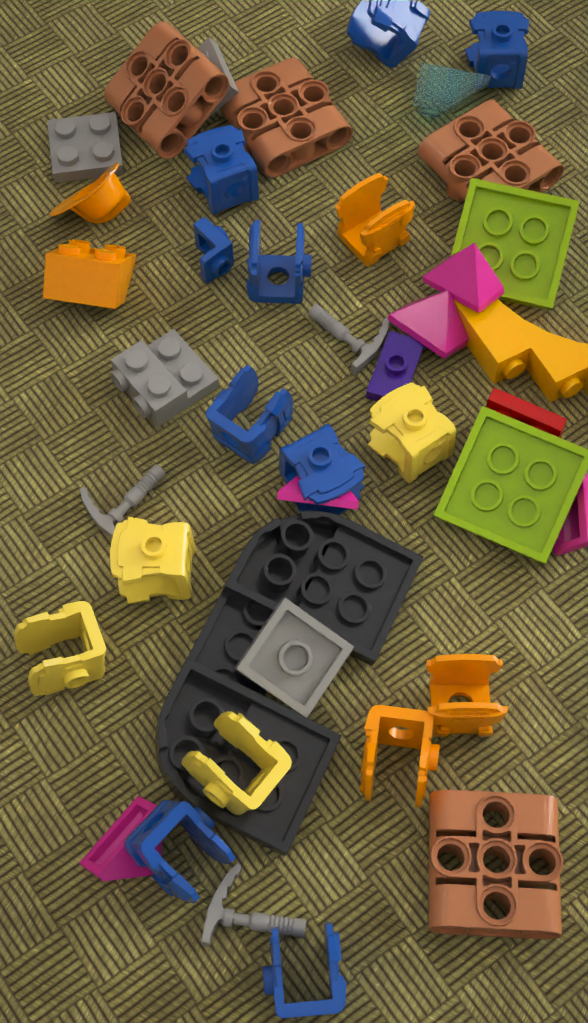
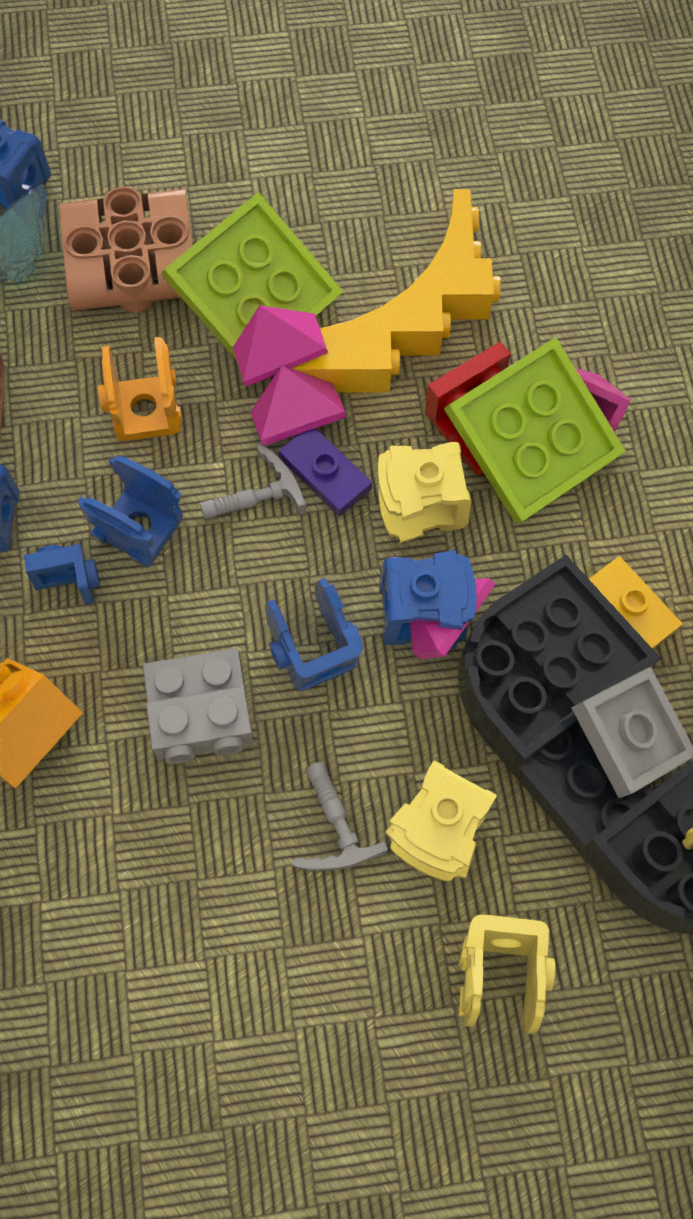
camera: 65 degrees left, 5 degrees up
(414, 628) = (636, 602): none -> yellow plate

